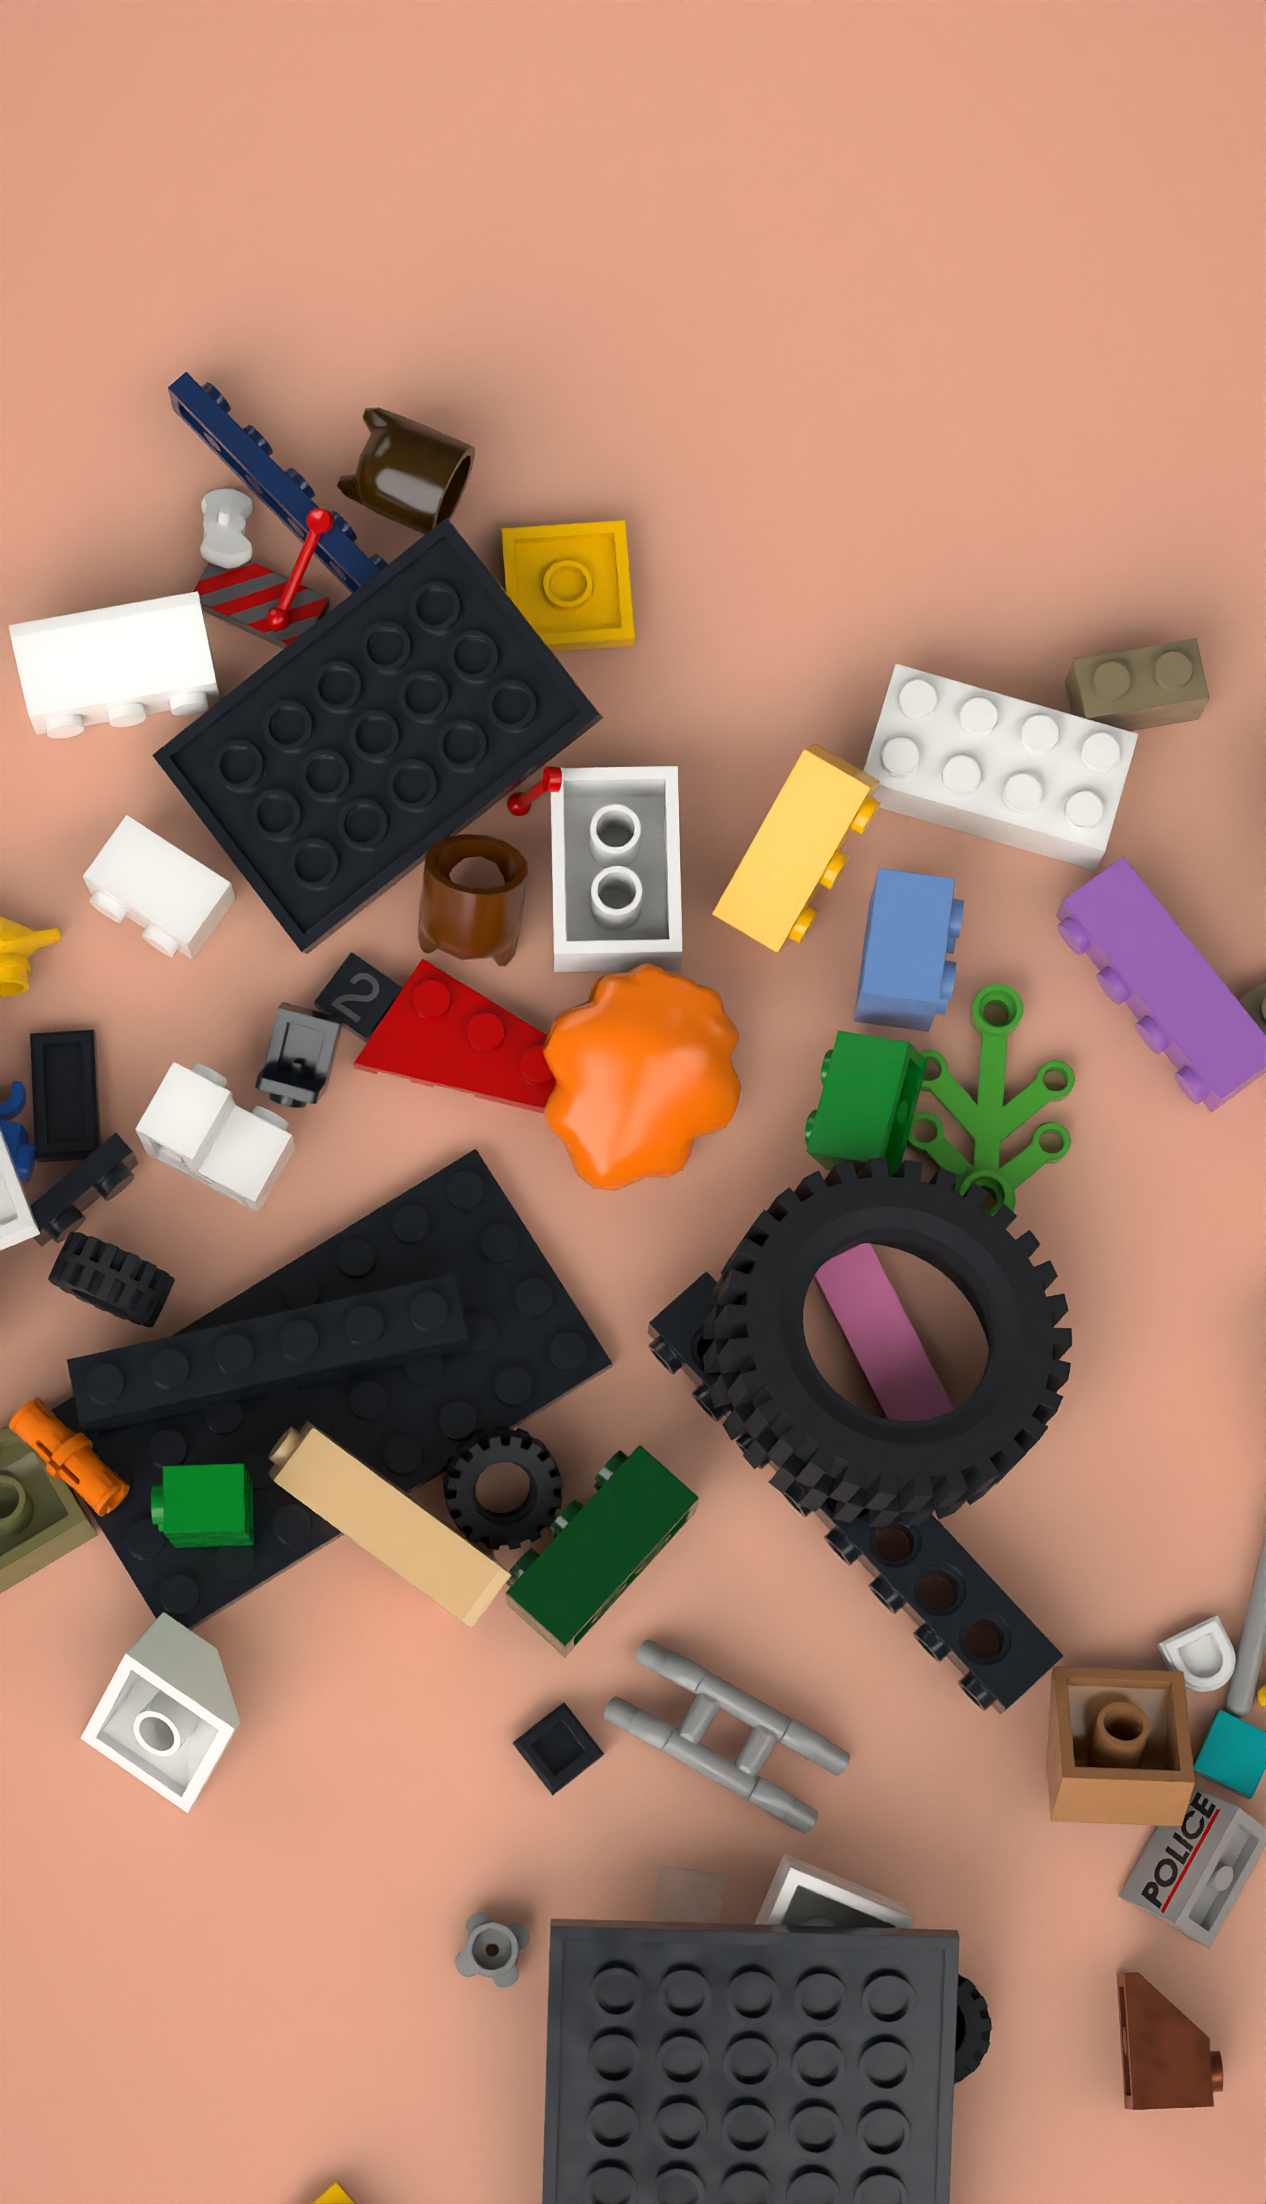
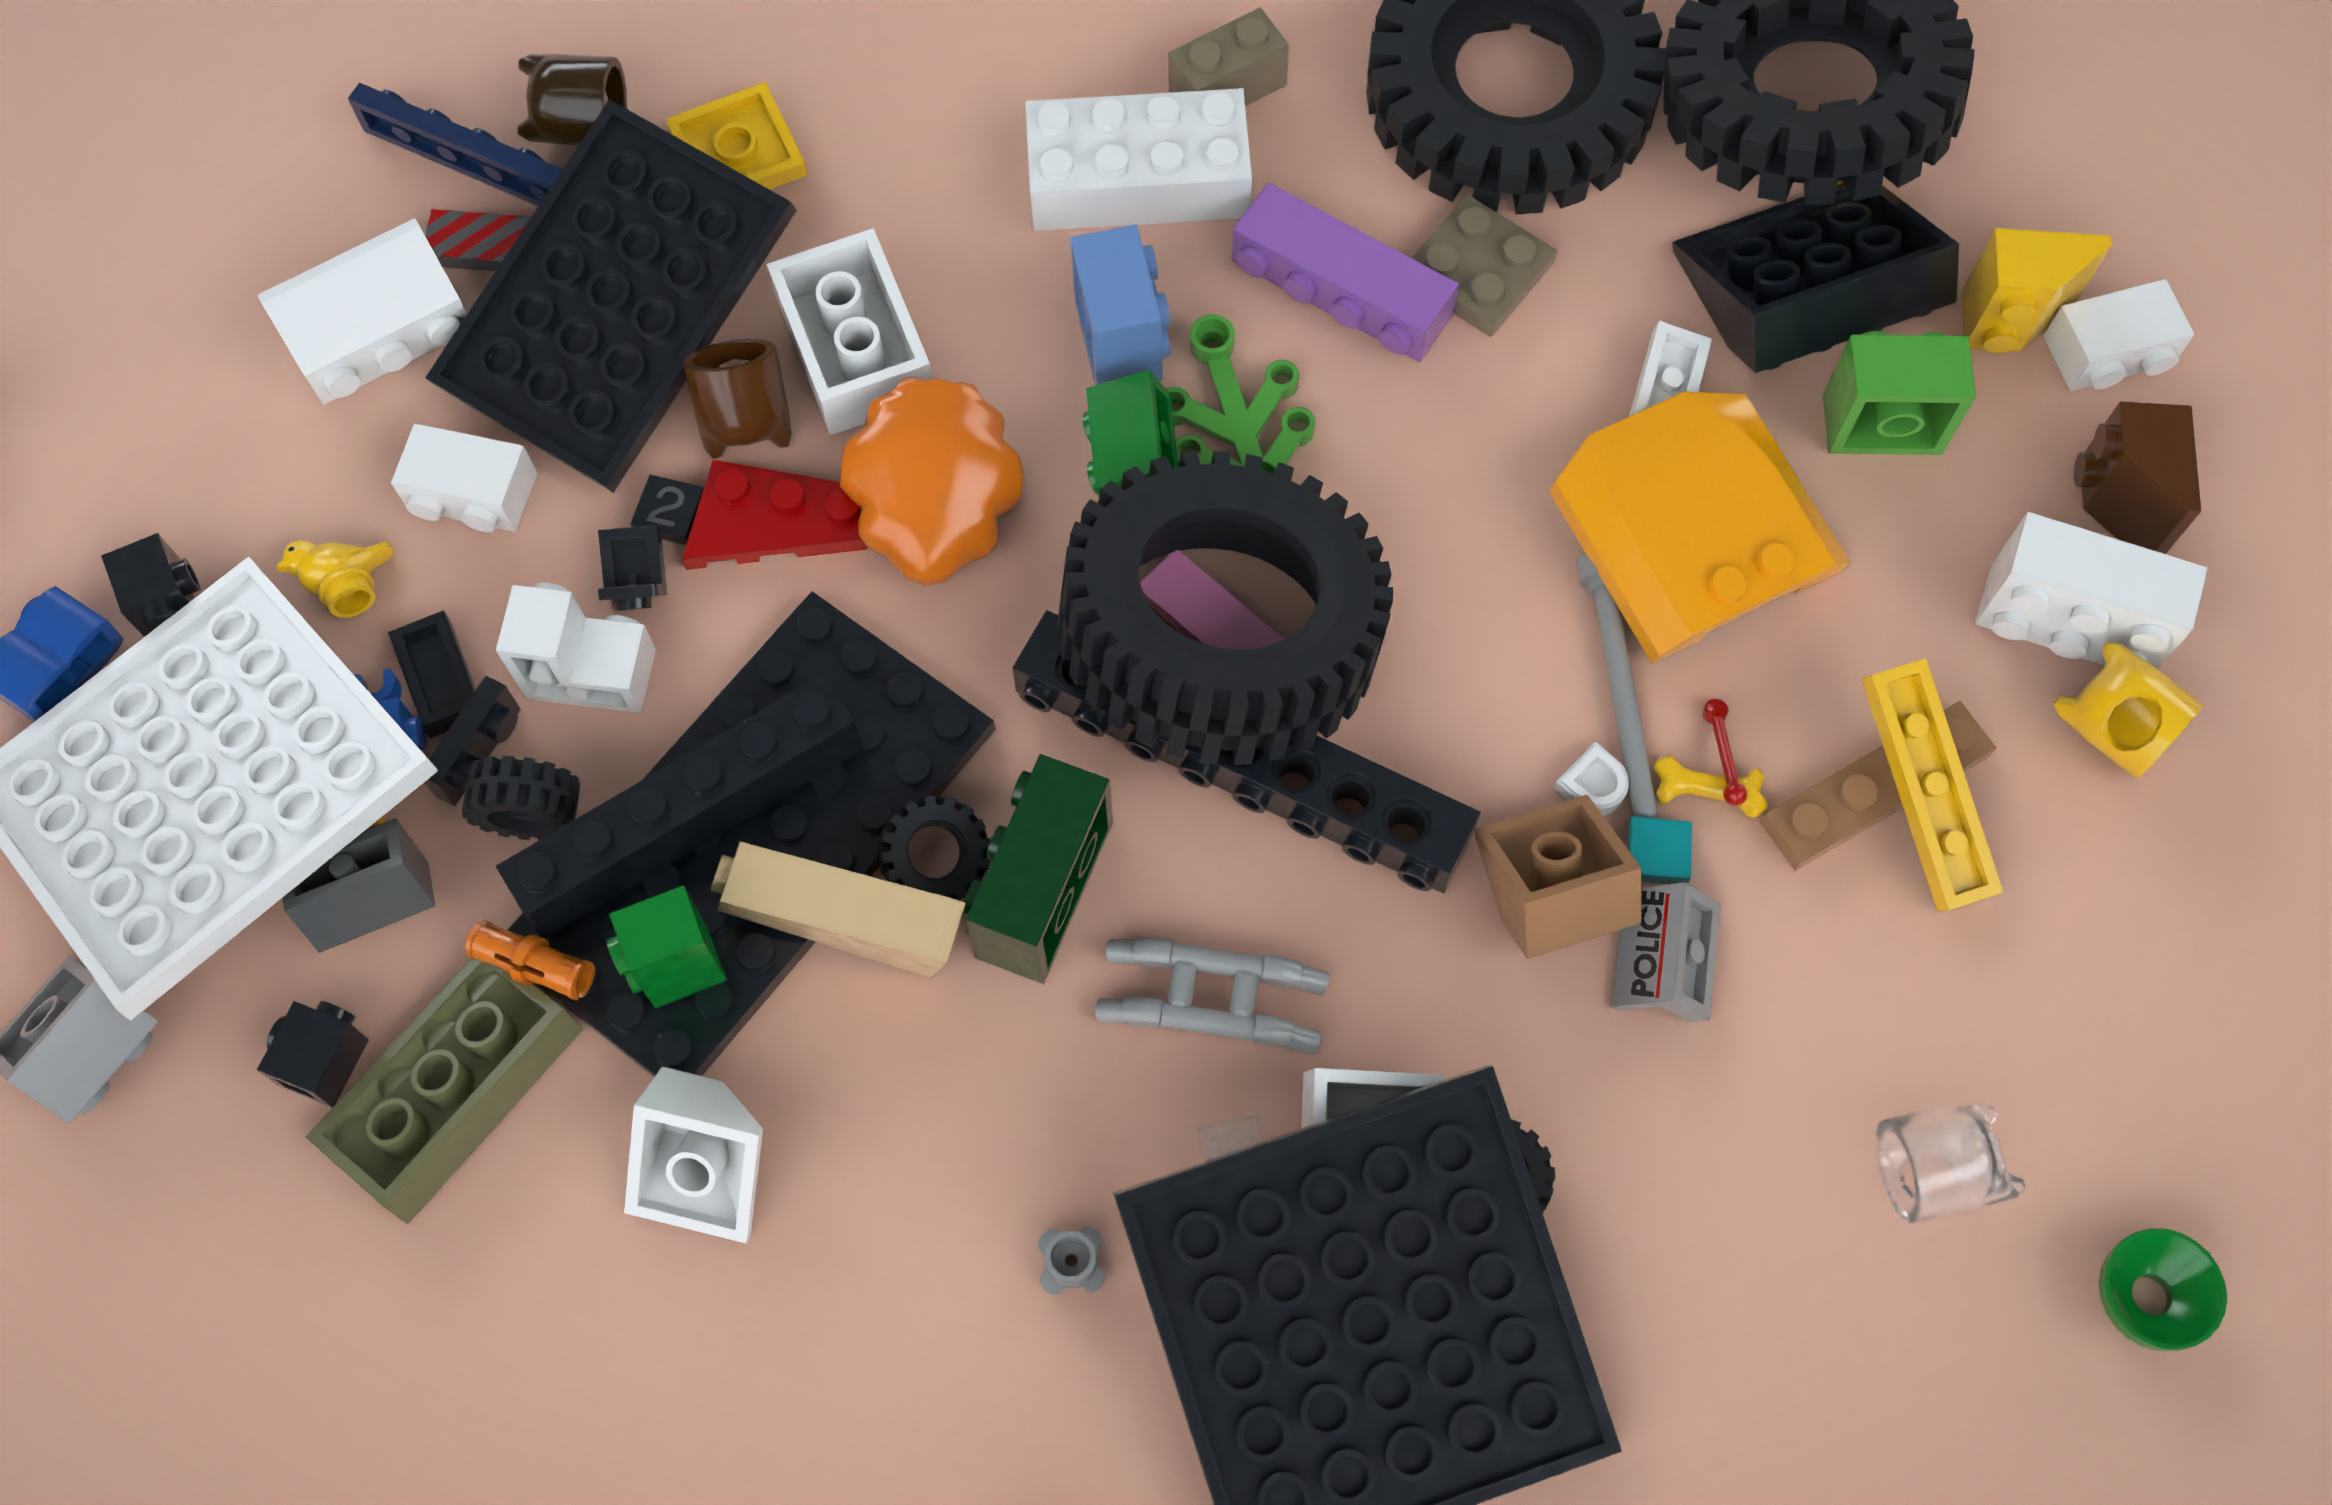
camera: 15 degrees left, 10 degrees down
(225, 528) = (433, 193): white piece -> none
(319, 522) = (508, 151): red hinge -> none
(520, 803) = (754, 318): red hinge -> none
(558, 1749) = (1066, 1062): black tile -> none
(799, 849) = (998, 260): yellow brick -> none
(1163, 2051) = (1707, 1119): copper slope -> none

